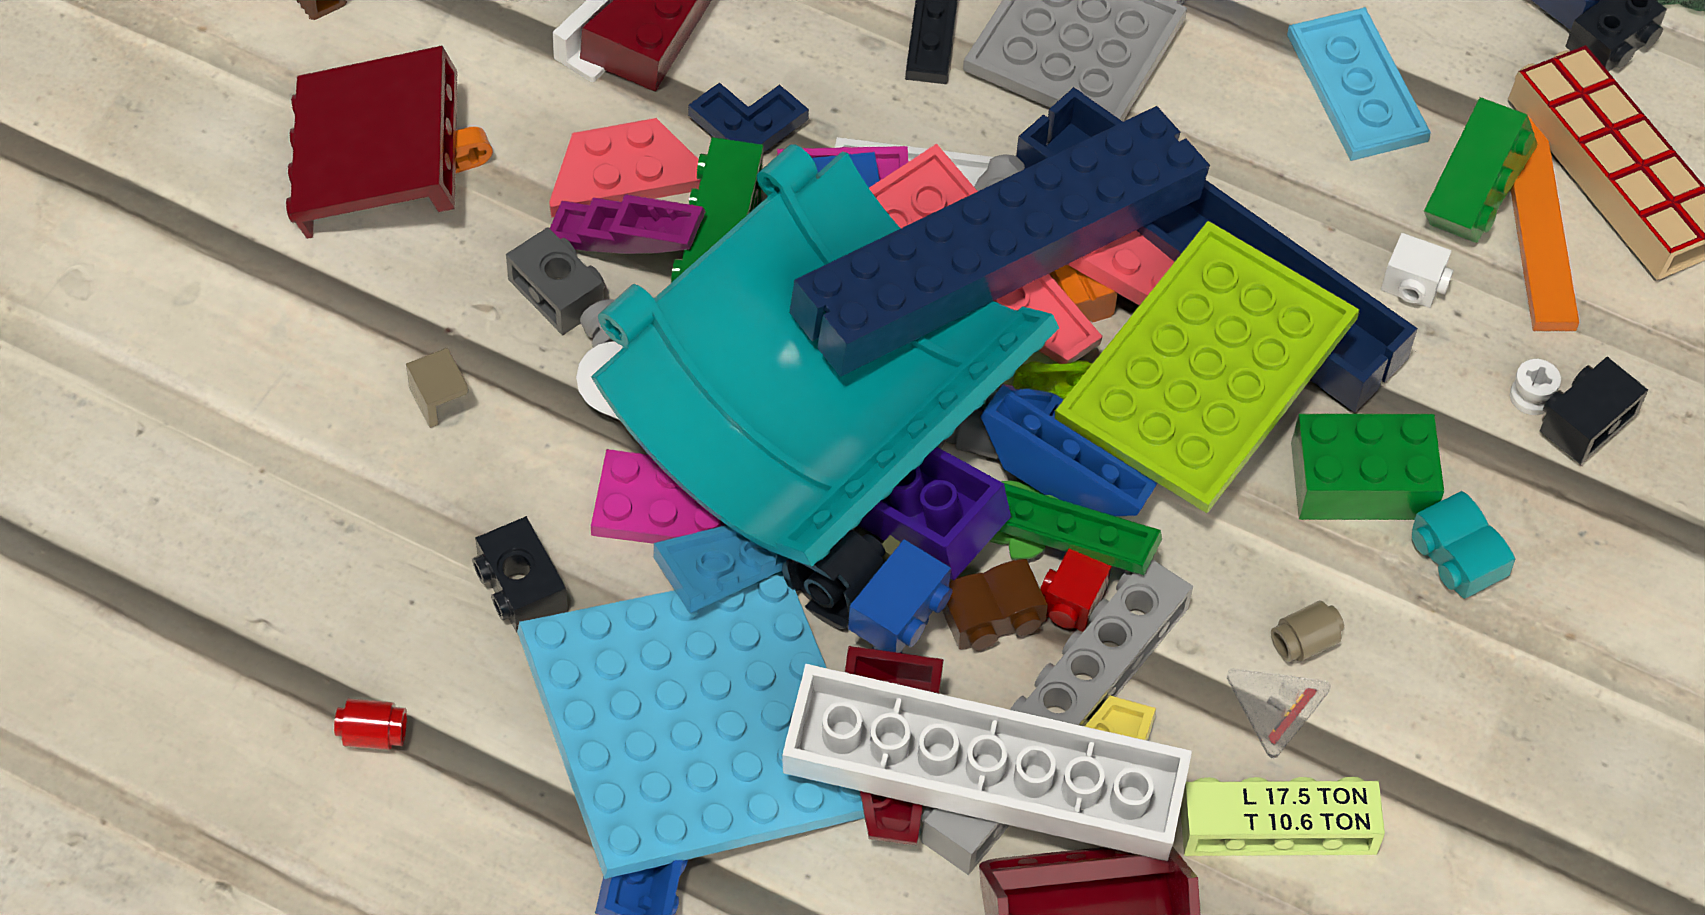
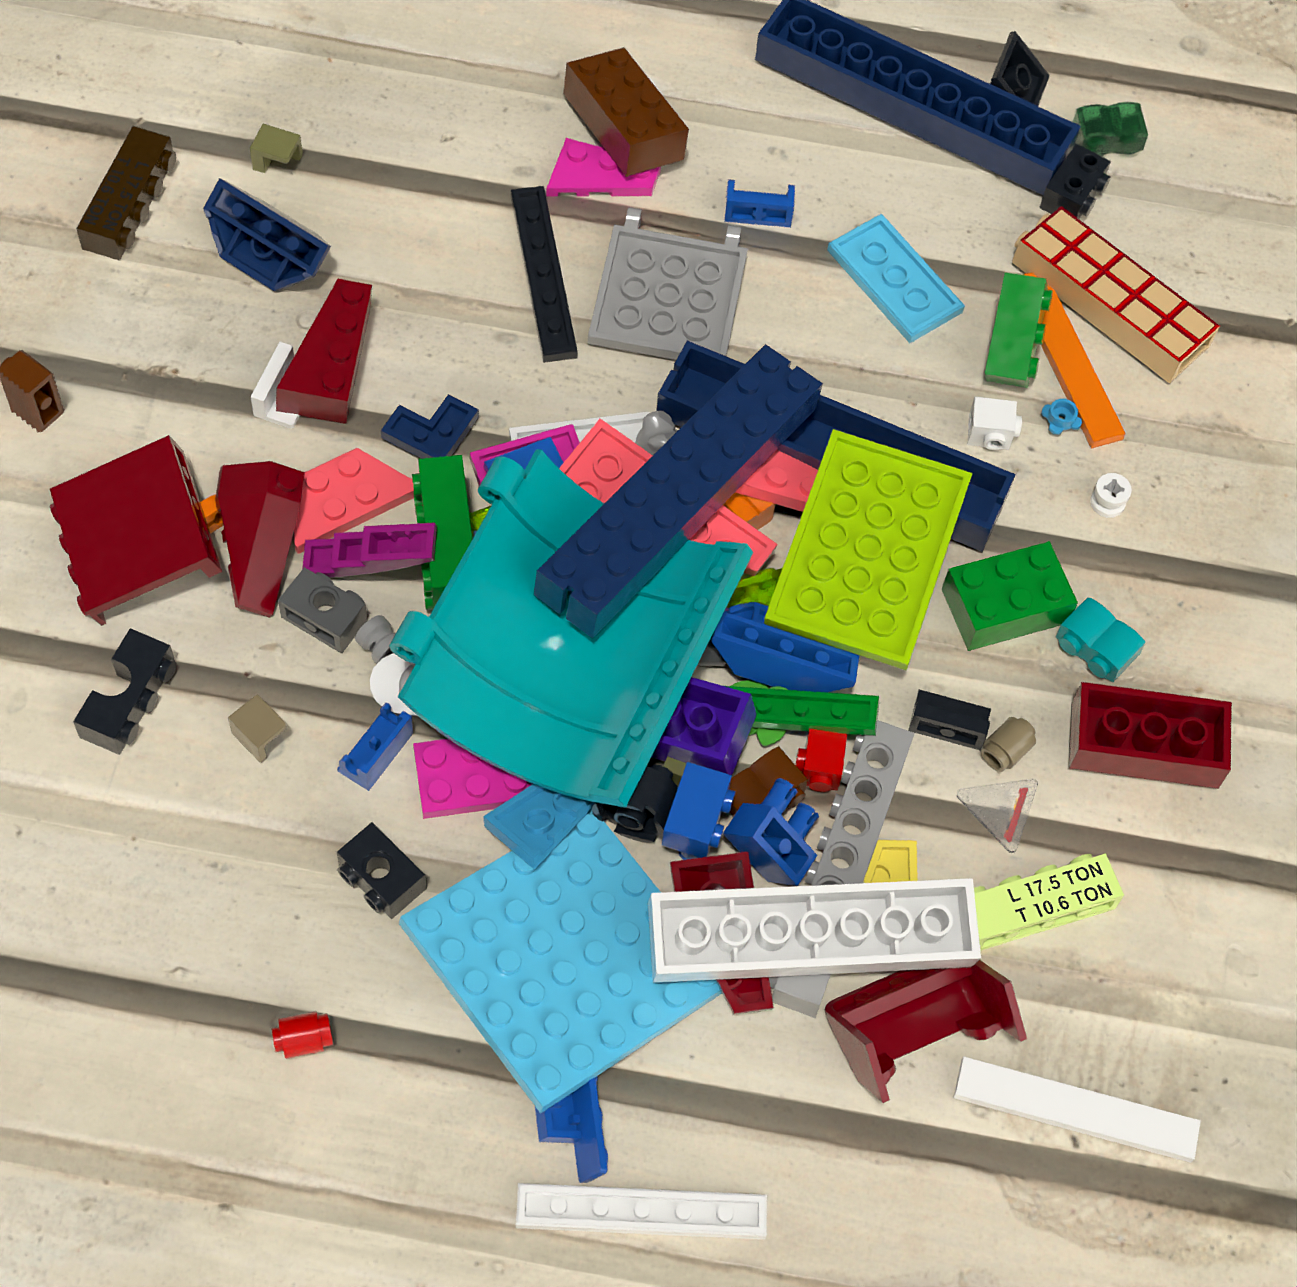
camera: 20 degrees left, 5 degrees up
(283, 336) = (115, 719): none -> black arch
(514, 165) = (259, 519): none -> dark red wedge
(564, 444) = (377, 747): none -> blue hinge
(975, 655) = (773, 843): none -> blue brick
(1246, 587) = (950, 720): none -> black panel
(1484, 665) = (1150, 735): none -> dark red brick
(1510, 275) = (1062, 408): none -> dark azure plate
(1592, 409) = (1161, 503): black brick -> none

